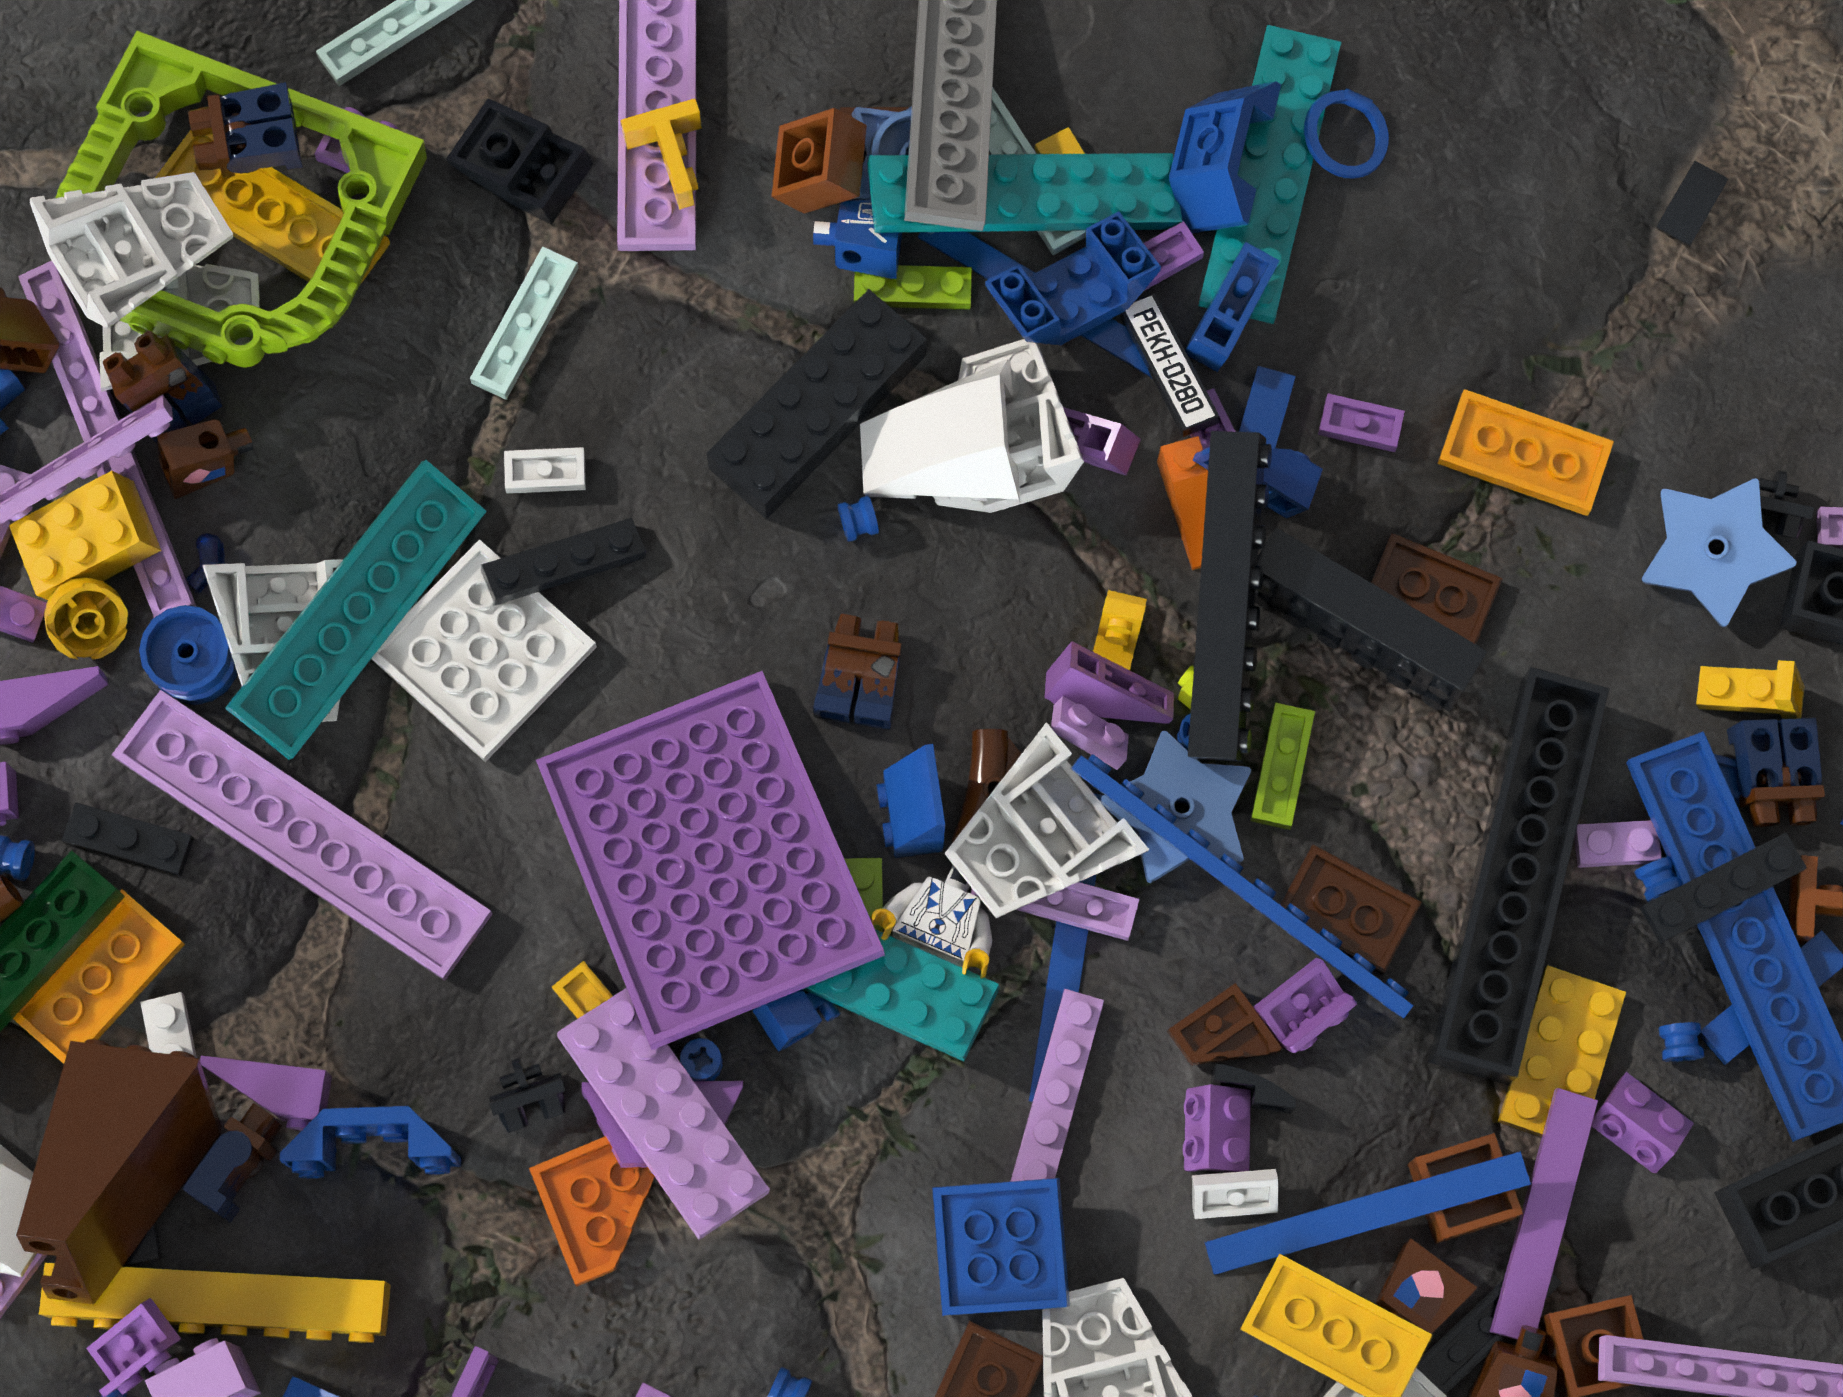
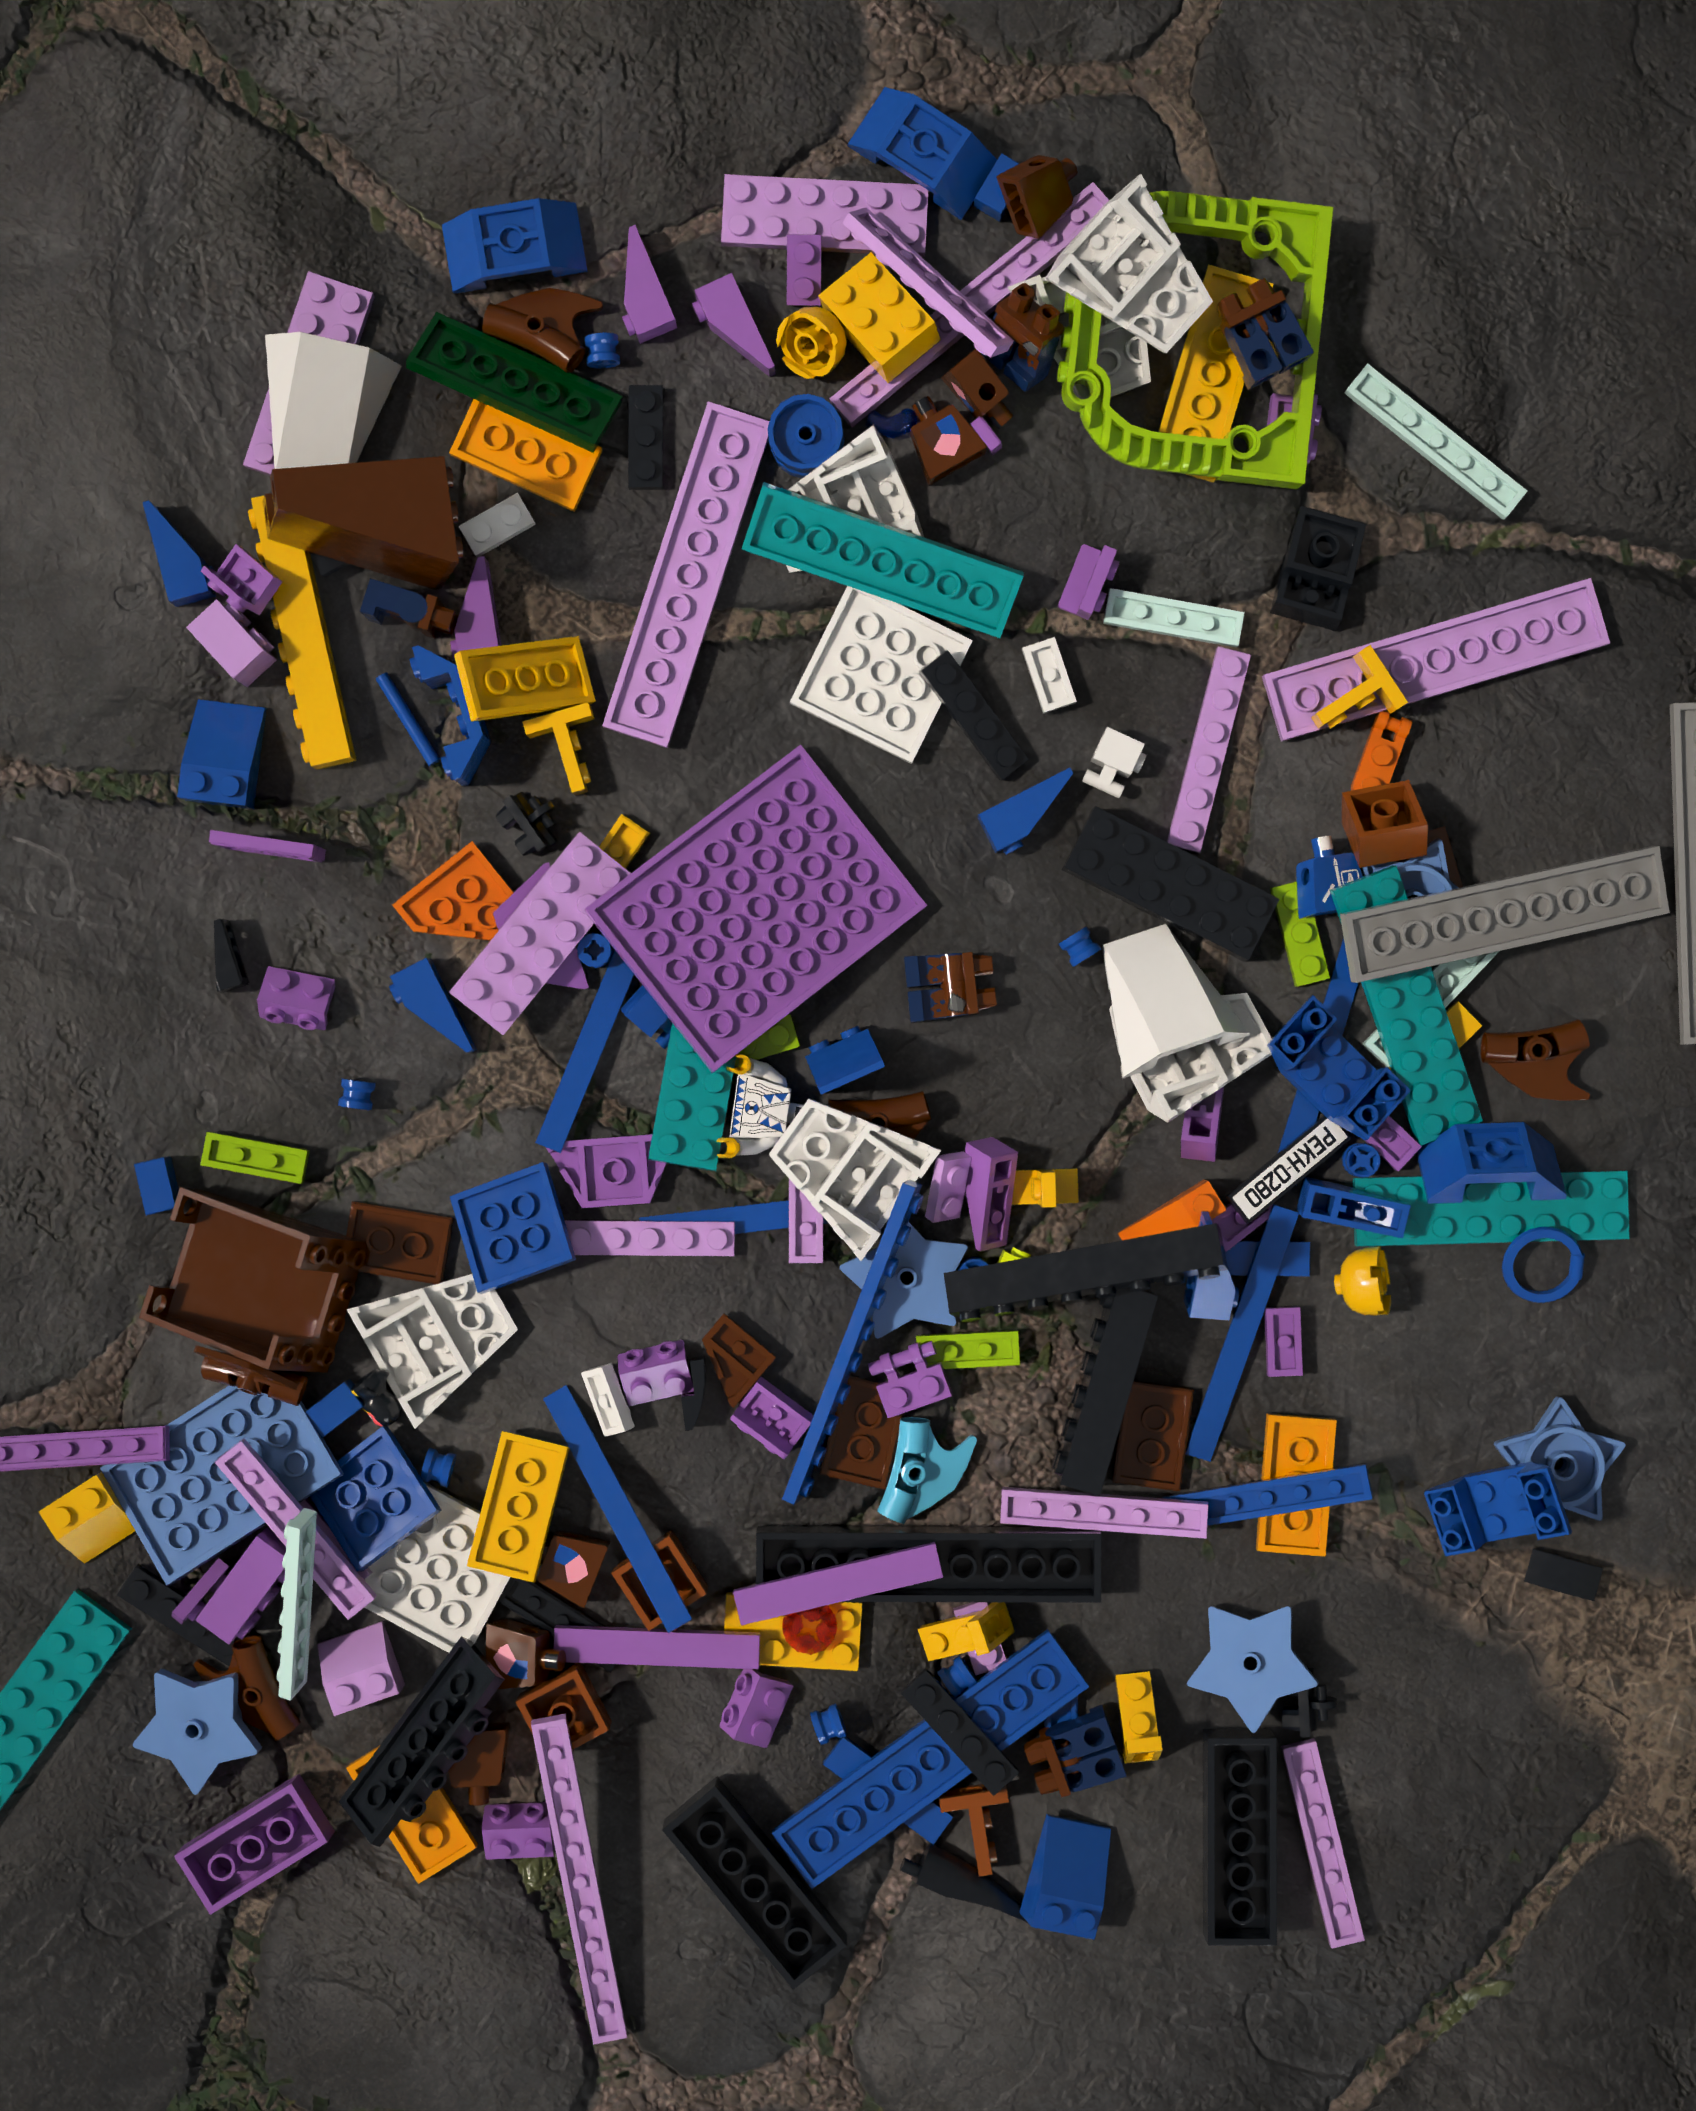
camera: 75 degrees right, 15 degrees up
(245, 511) = (943, 440): none -> reddish brown torso
(256, 463) = (987, 435): none -> medium lavender tile
(358, 1045) = (524, 678): none -> yellow plate
(361, 1207) = (407, 719): none -> blue bar
(447, 1025) = (567, 740): none -> yellow bracket
(453, 398) = (1084, 585): none -> medium lavender bracket
(658, 421) = (1116, 755): none -> white brick
(679, 326) = (1208, 749): none -> lavender plate
(692, 543) = (1016, 817): none -> blue slope
(700, 1273) = (427, 997): none -> blue slope
(741, 154) = (1379, 754): none -> orange plate
(816, 1102) = (586, 1055): none -> blue piece
(962, 1116) = (609, 1170): none -> medium lavender wing
(1121, 80) = (1543, 1074): none -> reddish brown pin
(1184, 280) = (1365, 1157): none -> blue wheel
(1312, 835) = (912, 1389): none -> medium lavender plate
(1317, 318) = (1365, 1282): none -> yellow cylinder
(1341, 464) = (1241, 1332): none -> blue piece
(1408, 854) = (935, 1472): none -> medium azure pin
(1506, 663) = (1104, 1512): none -> lavender plate
(1518, 975) = (837, 1583): none -> medium lavender tile
(1532, 481) = (1283, 1494): none -> blue plate
(1552, 1045) = (806, 1642): none -> clear red gear
(1569, 175) = (1583, 1453): none -> medium blue plate
(1601, 242) = (1497, 1507): none -> blue slope
(1610, 855) = (967, 1632): none -> yellow bracket

